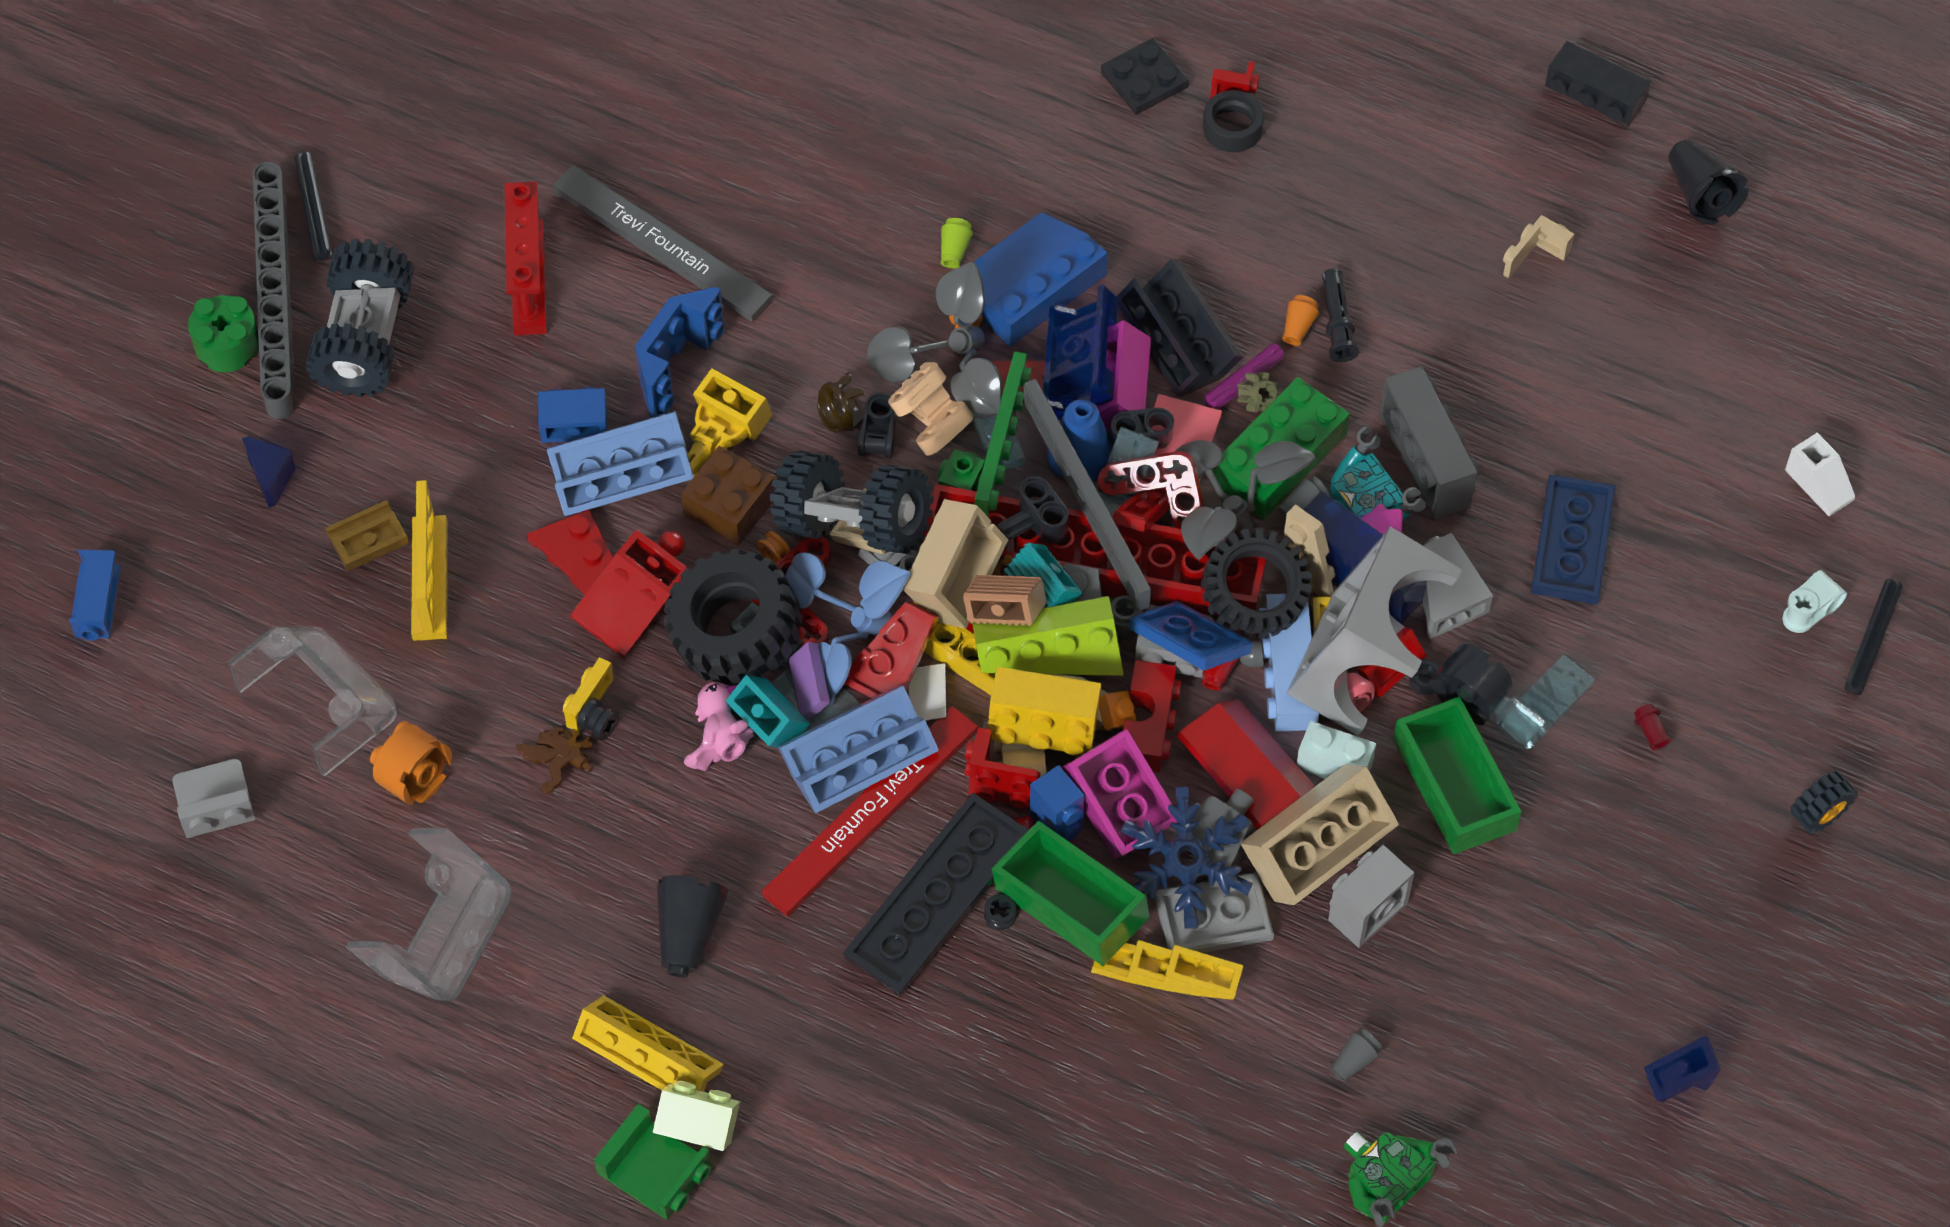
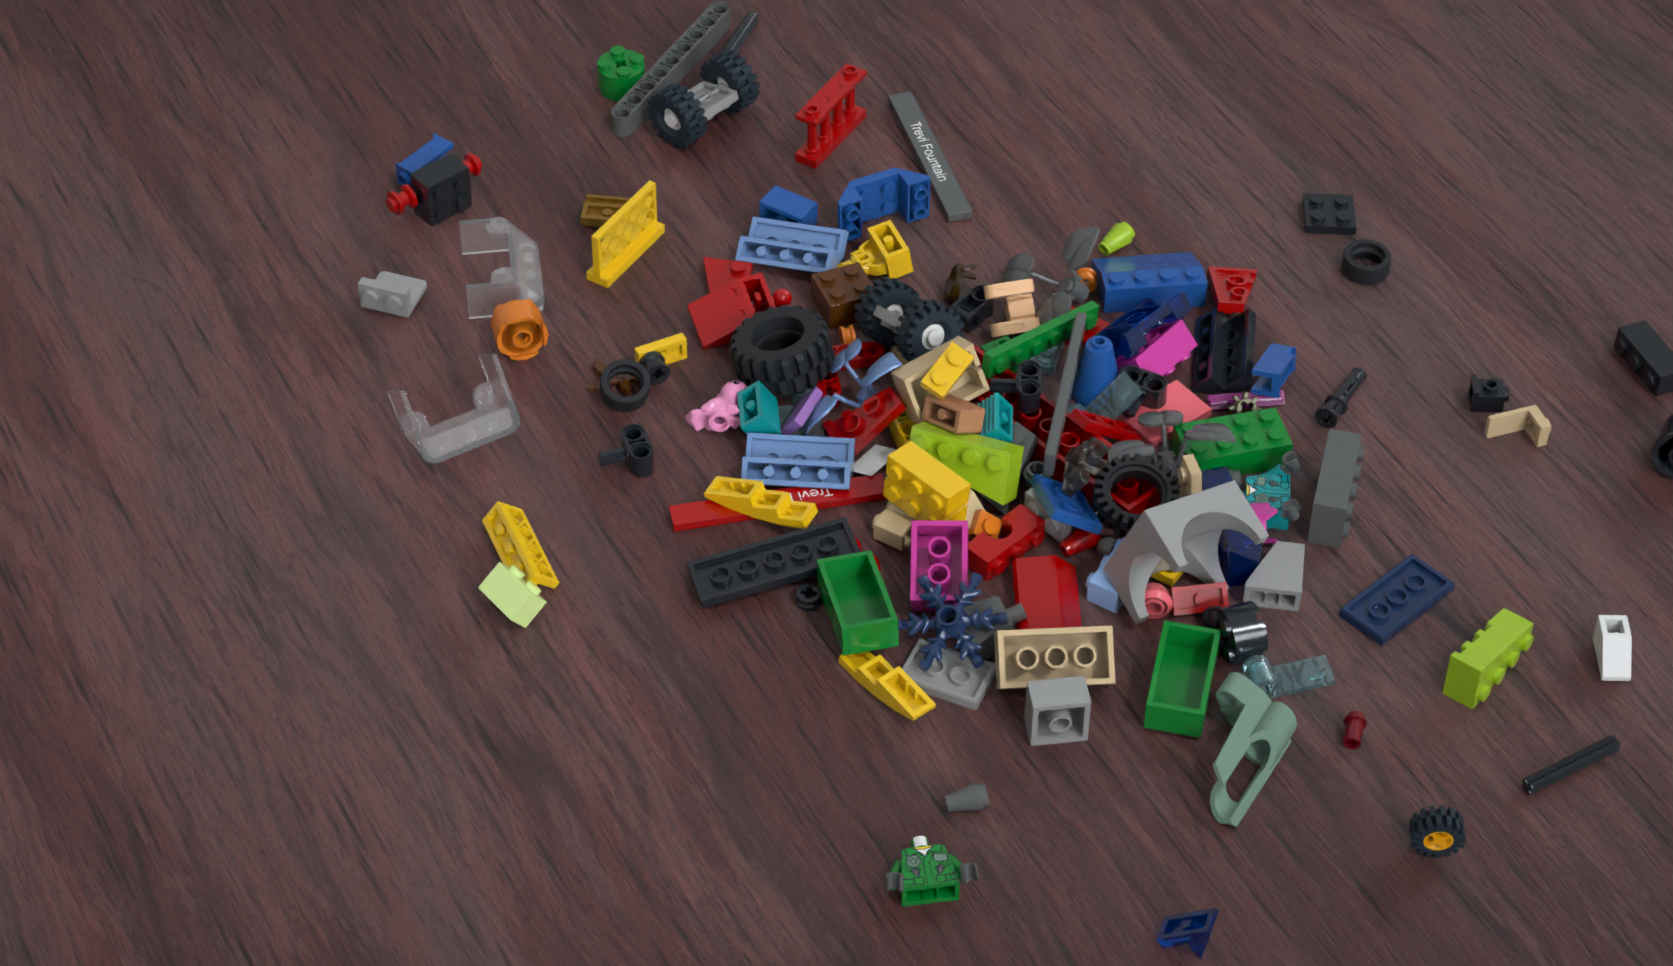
camera: 35 degrees right, 15 degrees down
(153, 626) = (437, 189): none -> black brick
(271, 466) = (583, 153): clear blue slope -> none
(602, 742) = (629, 367): none -> black tyre
(651, 1165) = (463, 608): green panel -> none
(663, 847) = (634, 450): none -> black beam
(686, 921) = (605, 492): black cone -> none
(862, 828) = (753, 500): none -> yellow slope
(974, 556) = (947, 371): none -> yellow plate
(996, 780) = (869, 519): red bracket -> none
(1057, 803) = (894, 552): blue brick -> none
(1126, 239) = (1231, 287): none -> red wing
(1174, 483) = (1133, 419): beam -> none
(1178, 581) = (1081, 462): none -> clear smoke plate
(1230, 80) = (1395, 244): red bracket -> none
(1254, 326) = (1274, 369): none -> blue window
(1300, 316) = (1314, 384): orange cone -> none
(1328, 749) = (1105, 612): light aqua brick -> none
(1476, 225) = (1487, 394): none -> black brick
(1582, 800) = (1258, 731): none -> sand green panel
(1716, 560) = (1487, 658): none -> lime wedge
(1812, 602) = (1542, 717): light aqua piece -> none

